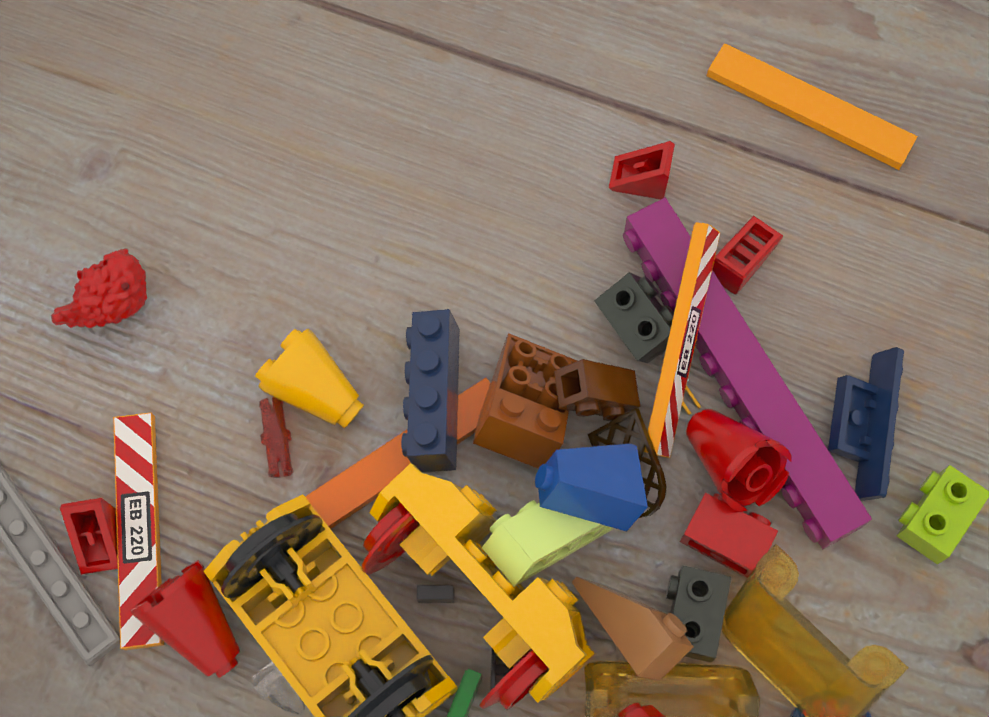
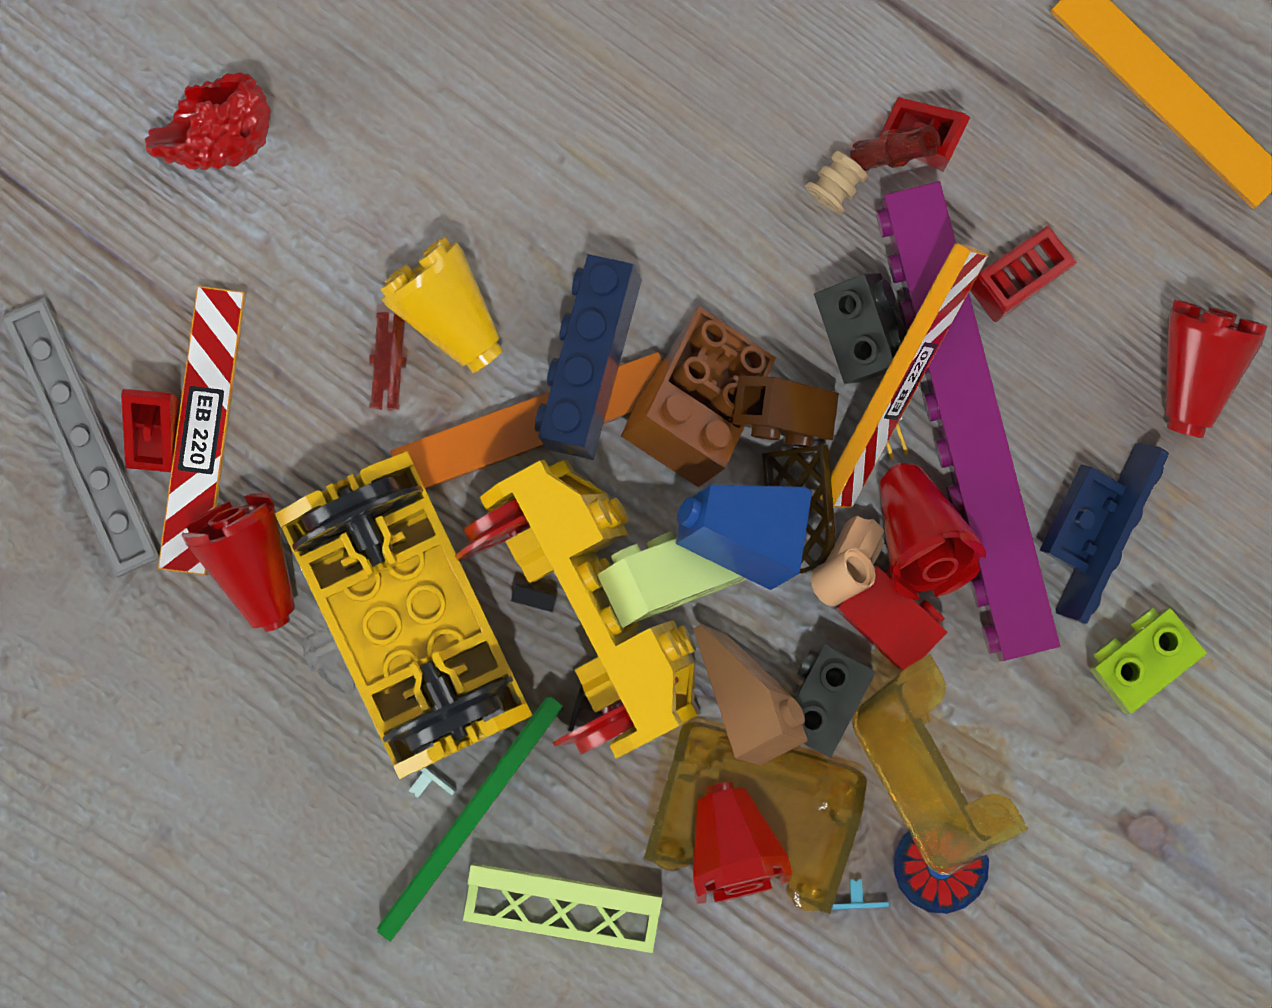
camera: 15 degrees right, 15 degrees up
(587, 222) = (837, 182): none -> tan bush
(625, 182) = (896, 147): none -> clear red pin
(683, 496) = (850, 563): none -> light nougat piece
(907, 278) = (1205, 363): none -> red cone

